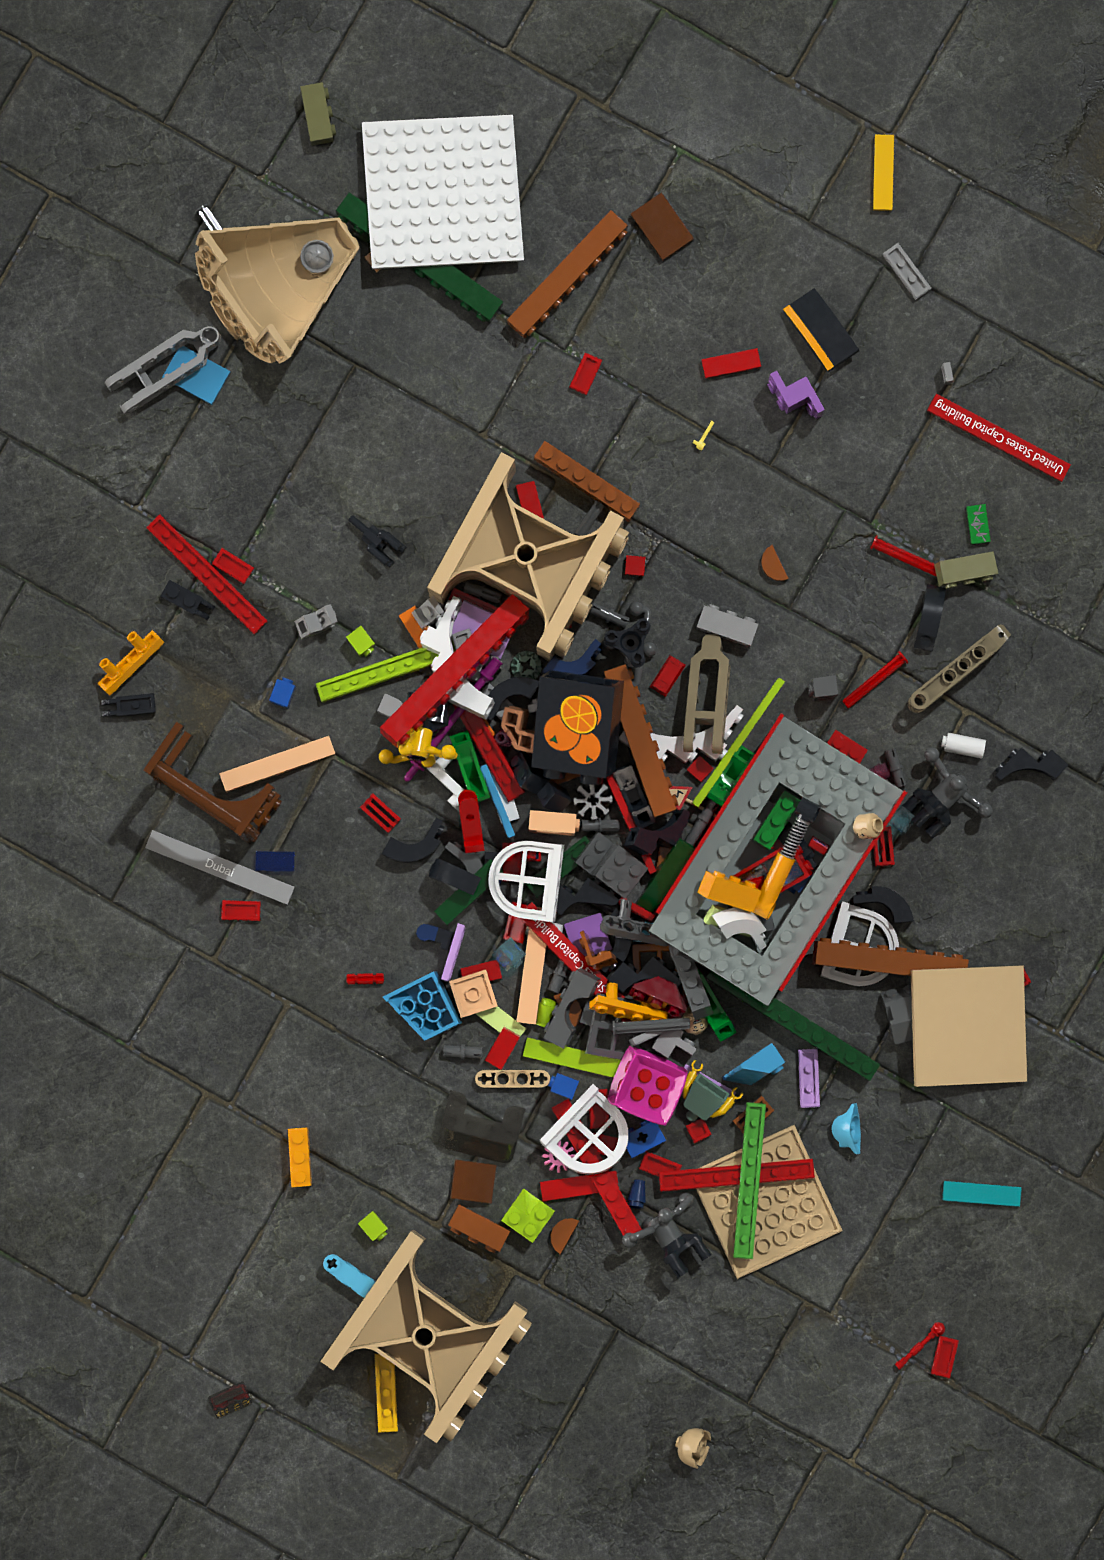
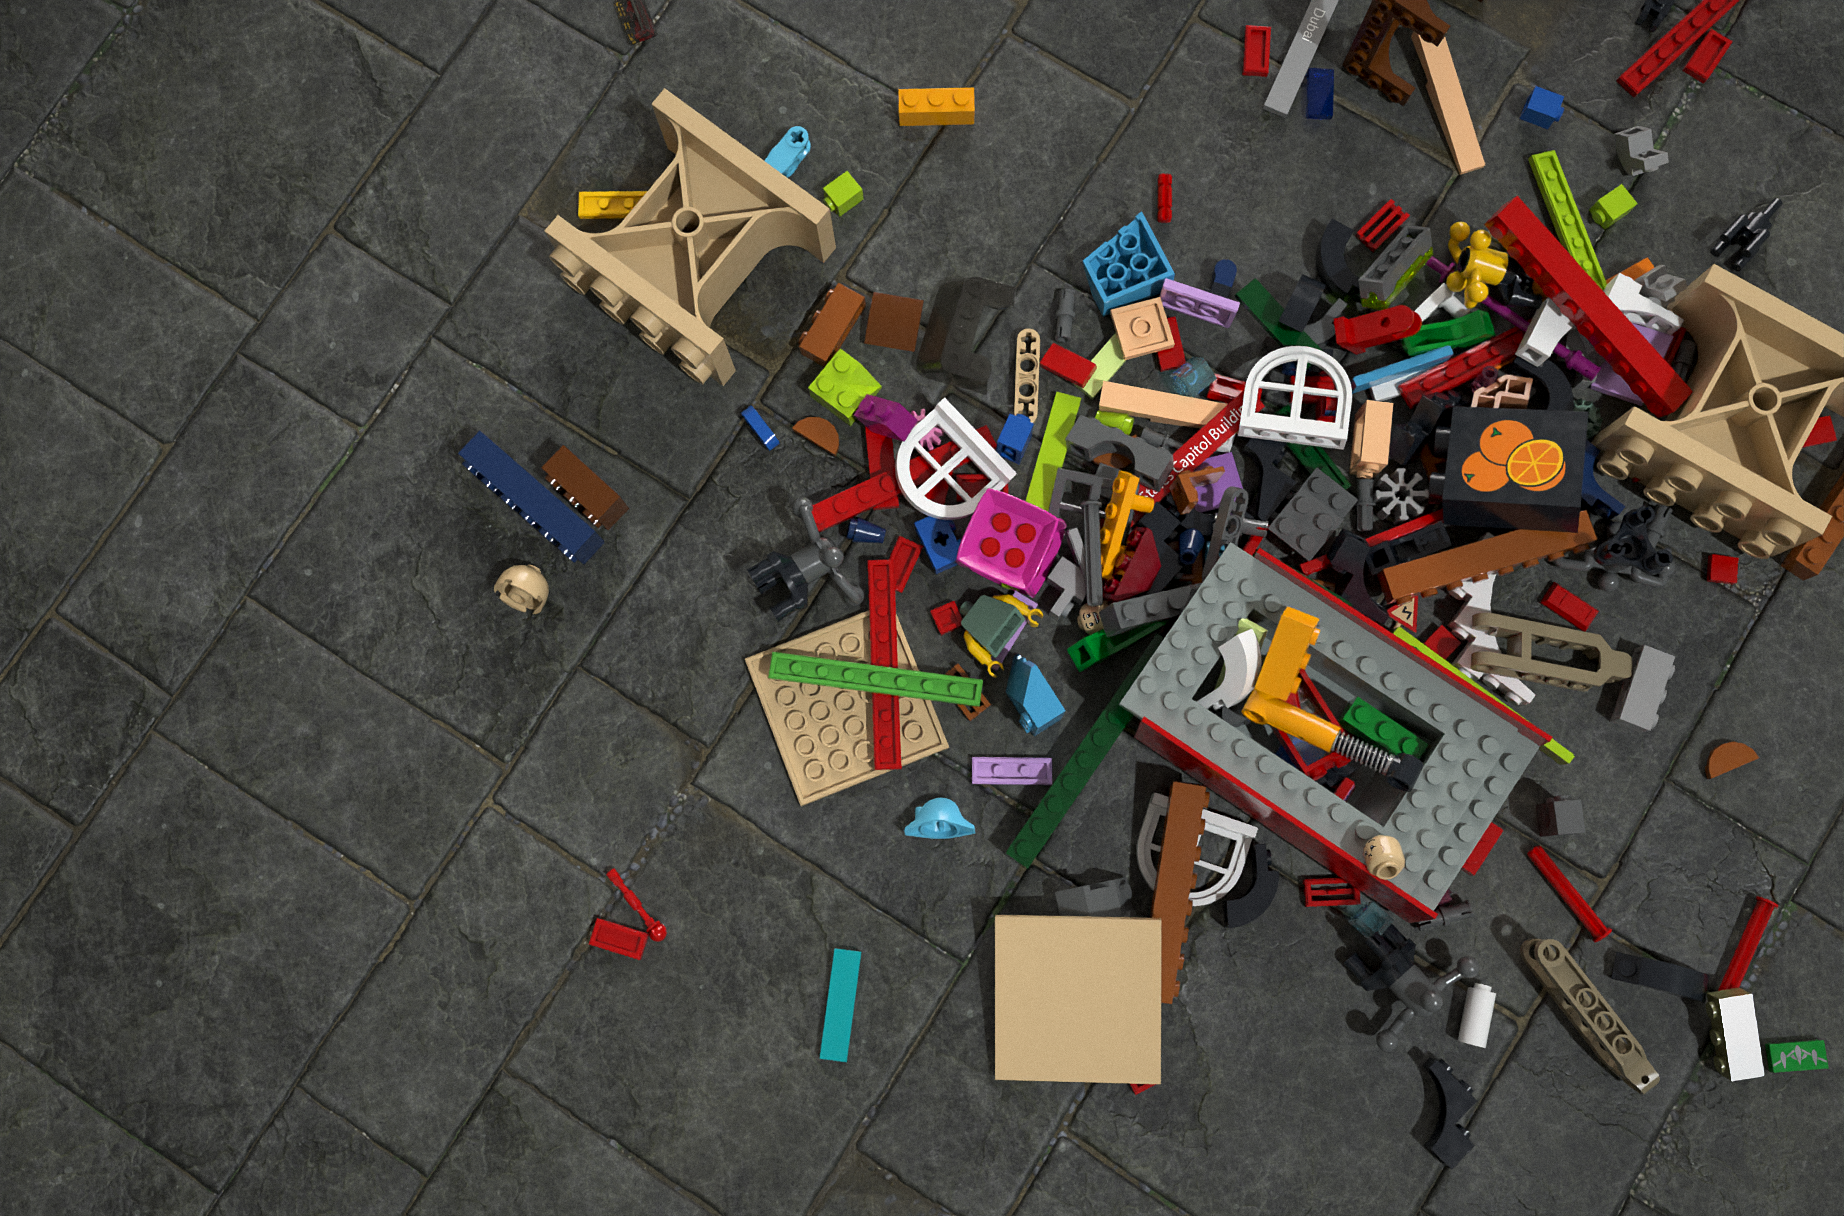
camera: 95 degrees right, 5 degrees down
(421, 806) = (1395, 267): none -> dark grey piece
(555, 1183) = (885, 417): none -> magenta brick
(561, 1278) = (760, 428): none -> blue beam
(617, 1406) = (584, 489): none -> reddish brown brick
(626, 1445) = (525, 493): none -> dark blue brick
(640, 954) = (1190, 545): none -> dark blue cone

